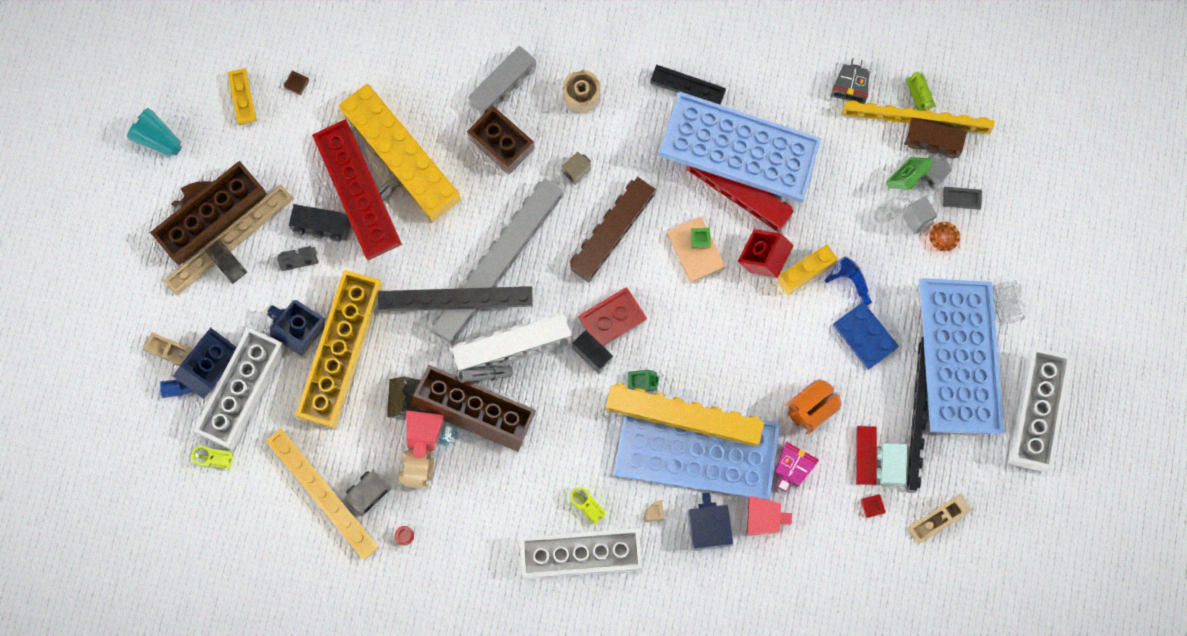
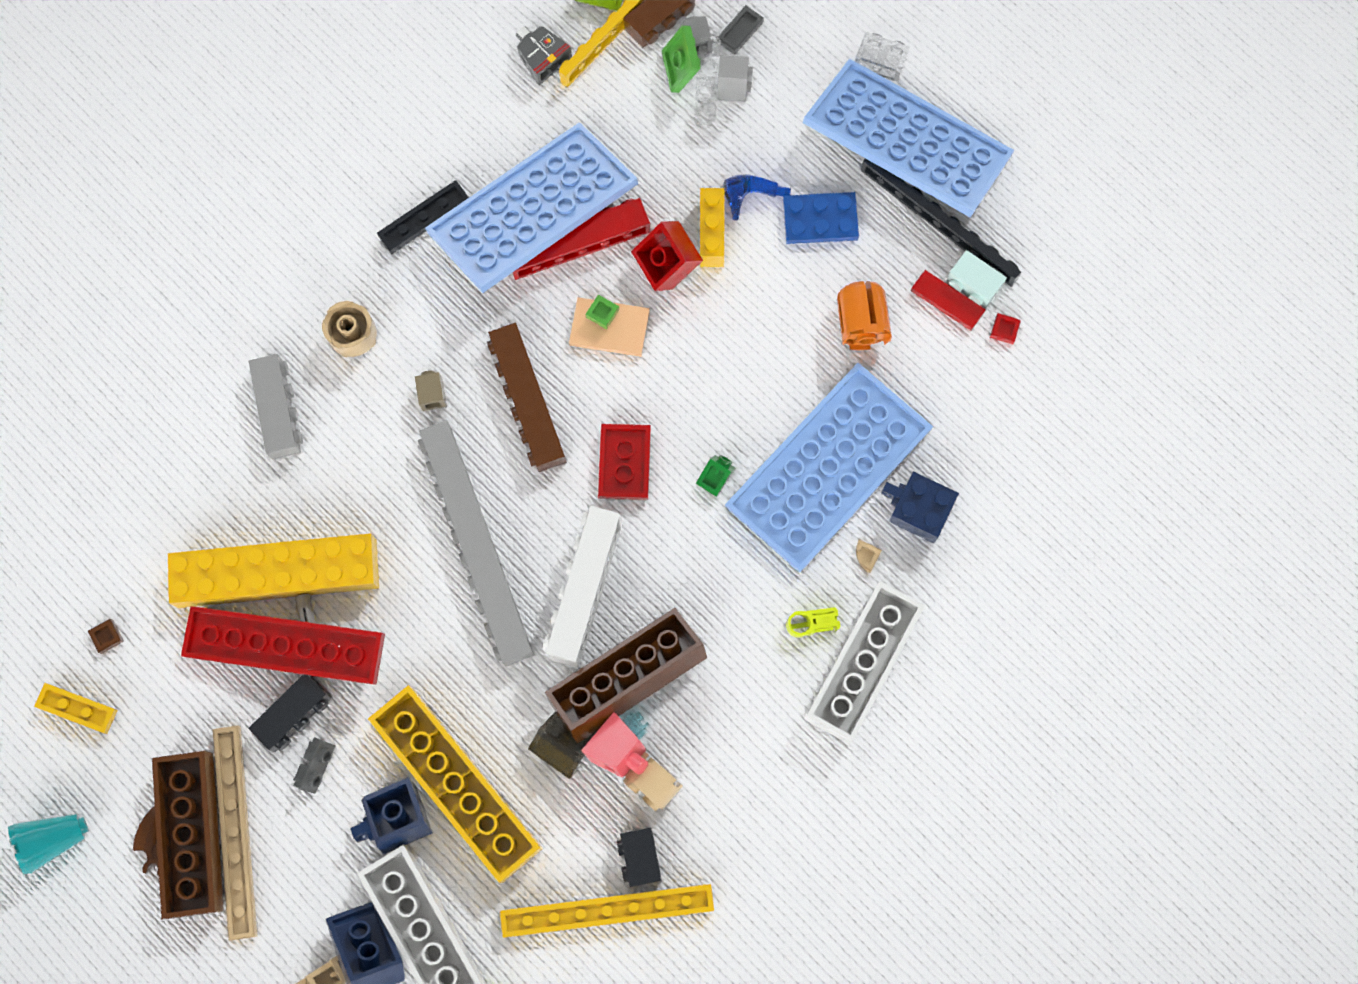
camera: 55 degrees left, 0 degrees up
(225, 261) = (258, 850): clear smoke brick -> none
(404, 535) = (716, 847): plate -> none
(455, 298) = (487, 616): black plate -> none
(467, 375) = (598, 630): light grey pin -> none
(500, 139) = (340, 450): reddish brown brick -> none
(592, 351) = (648, 507): black hinge -> none
(684, 415) = (785, 454): yellow brick -> none
(765, 517) = (947, 443): coral torso -> none
(793, 466) = (913, 379): dark pink torso -> none
(940, 518) = (1062, 270): tan slope -> none
(948, 229) = (763, 65): clear orange gear -> none
(1040, 410) = (1014, 99): white brick -> none

